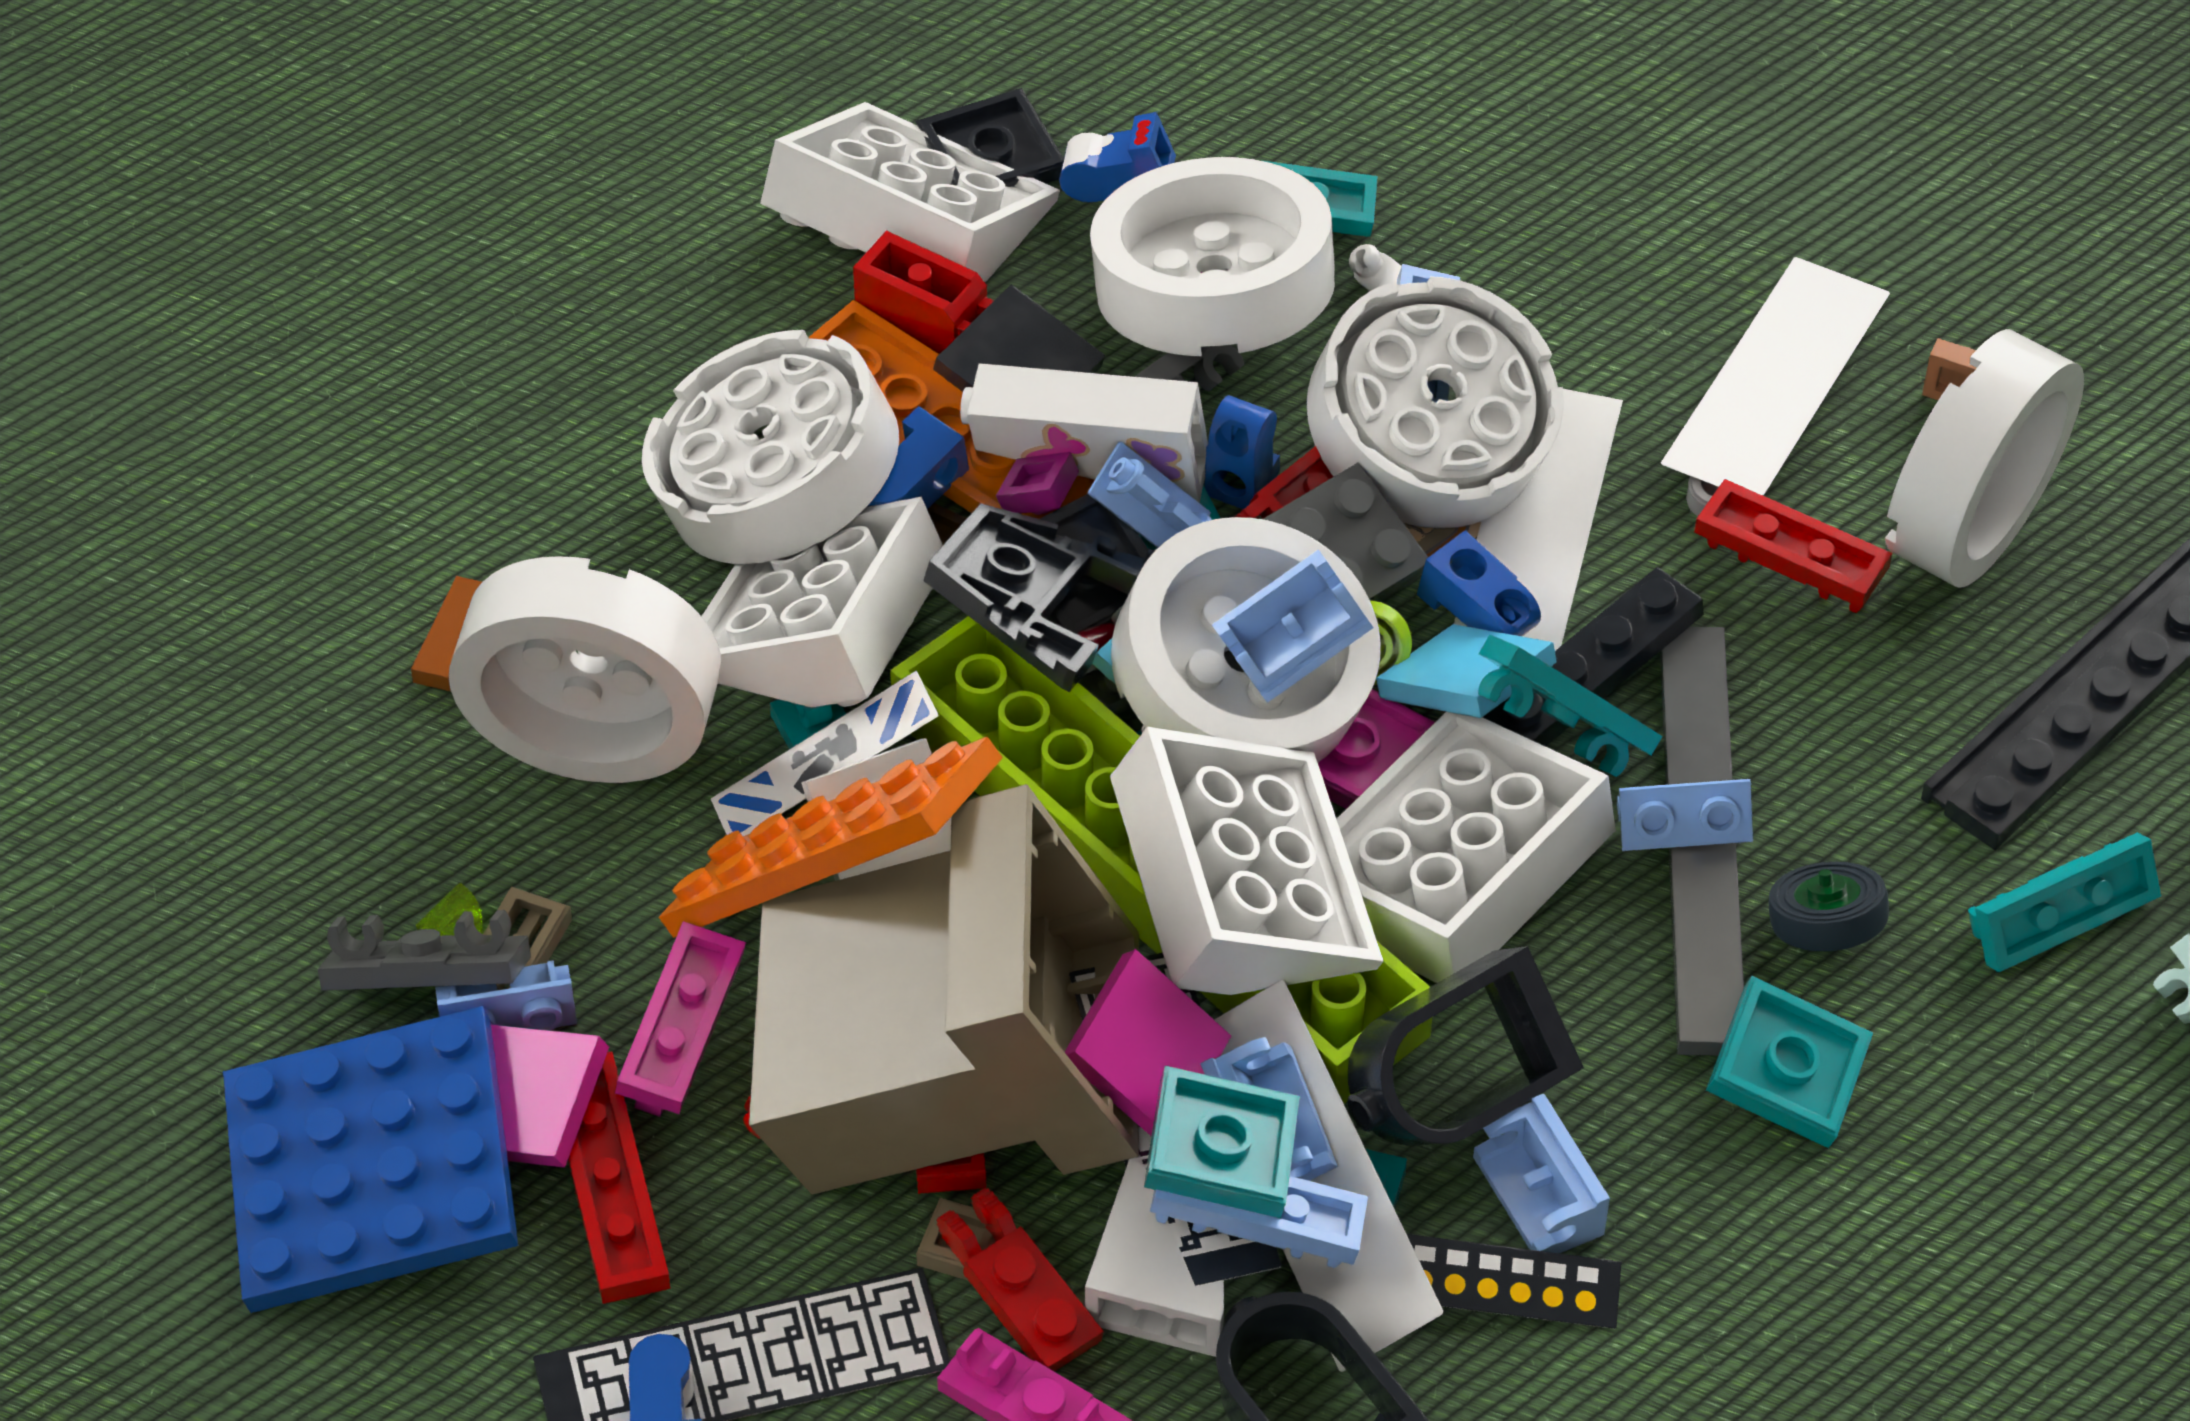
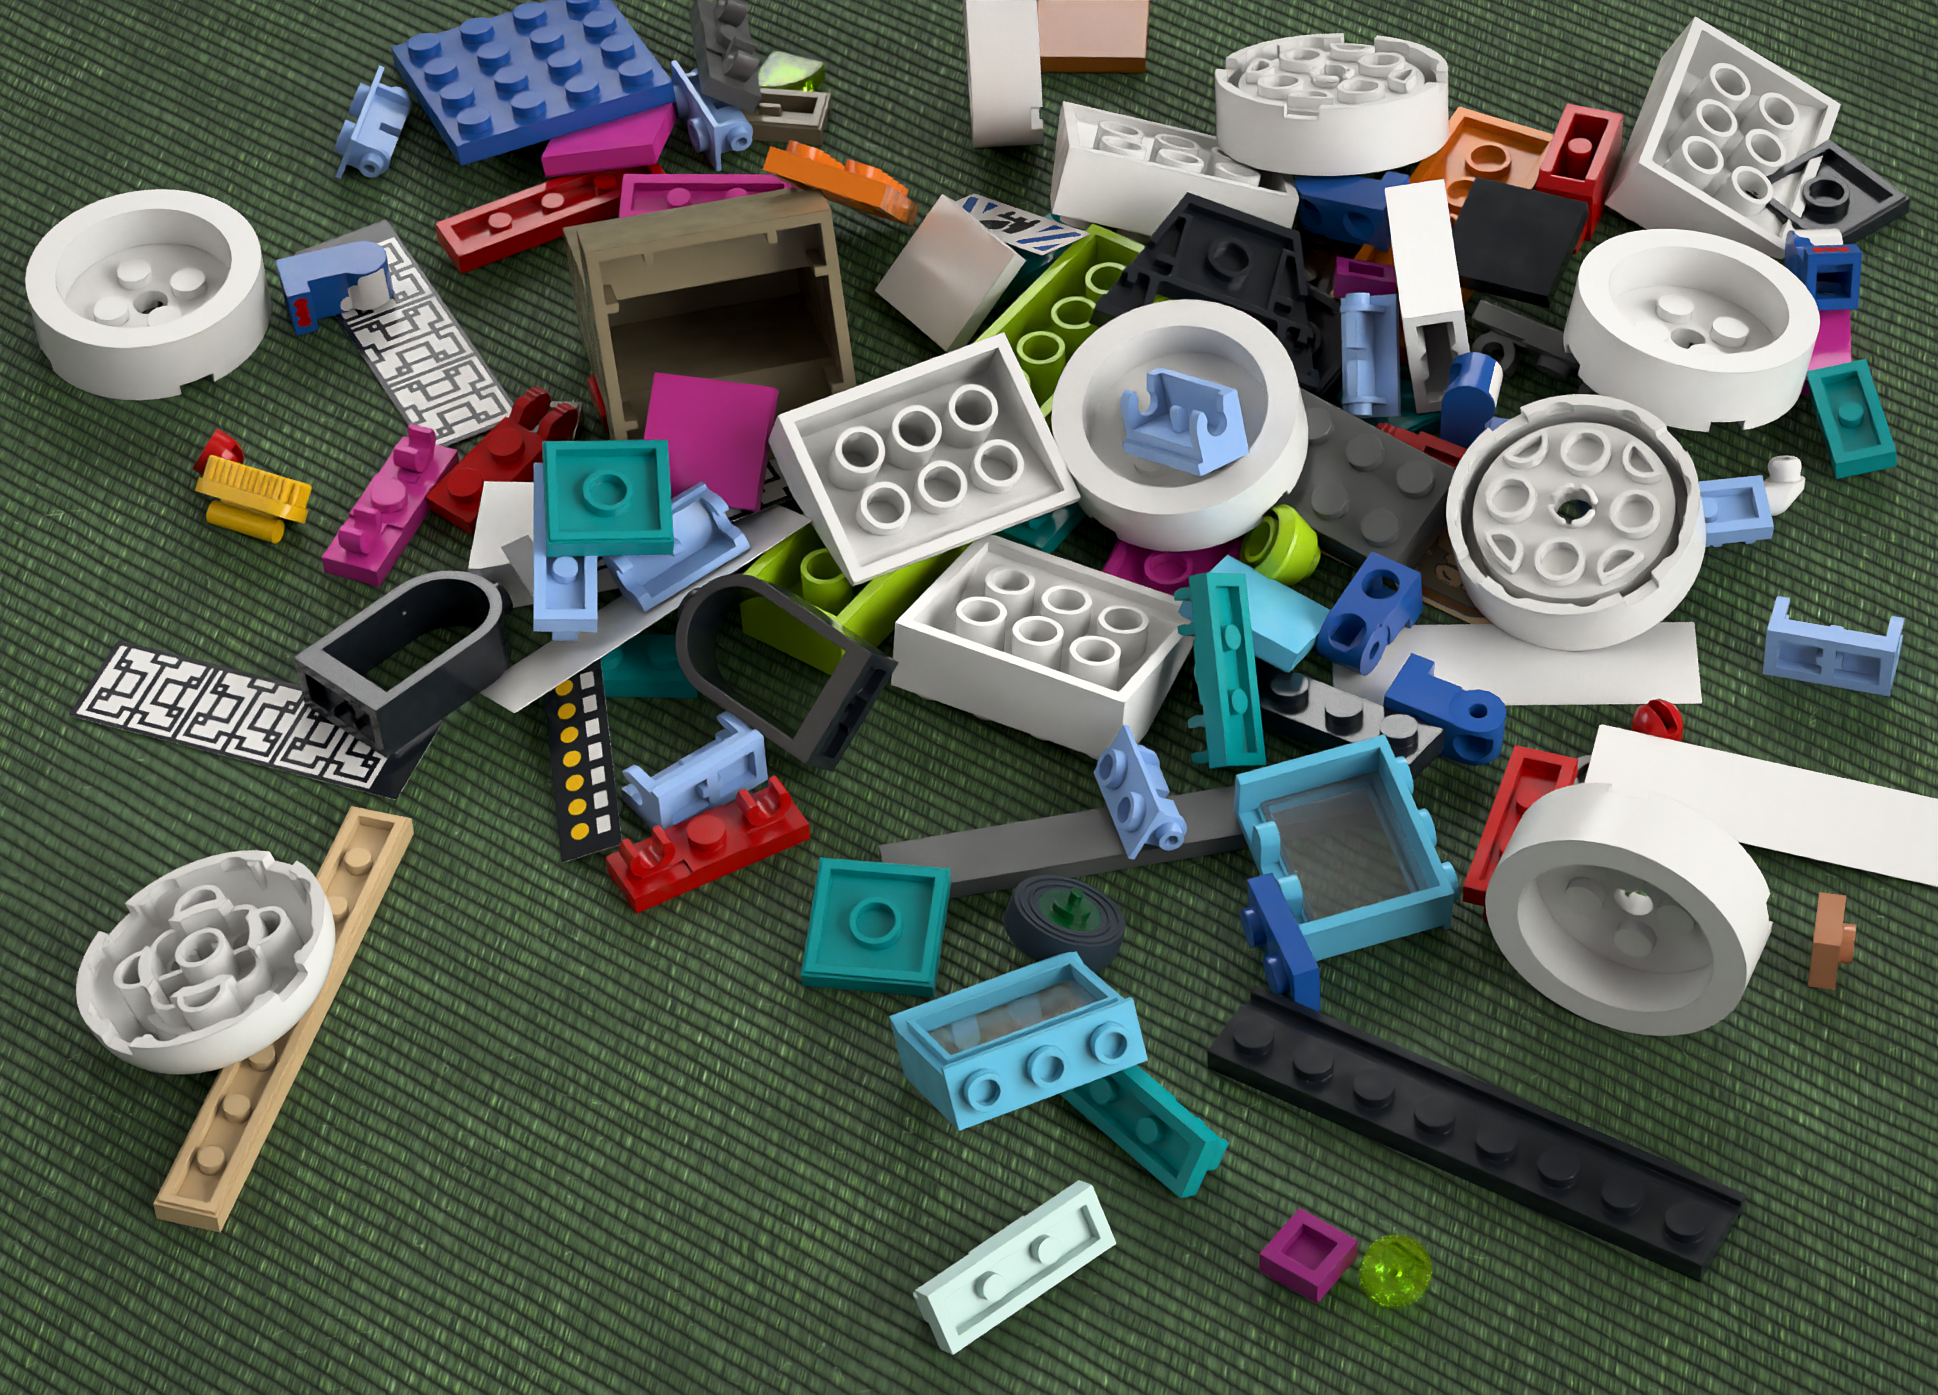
camera: 80 degrees right, 5 degrees down
(371, 1343) = (372, 139): none -> light blue hinge
(1595, 583) = (1470, 718): none -> blue leg
(1599, 286) = (1831, 653): none -> light blue hinge
(1642, 1201) = (707, 846): none -> red plate
(1656, 431) = (1654, 715): none -> red hinge
(1794, 674) = (1347, 846): none -> window
(1884, 749) = (1287, 959): none -> blue plate
(1999, 959) = (1017, 1039): none -> medium azure window

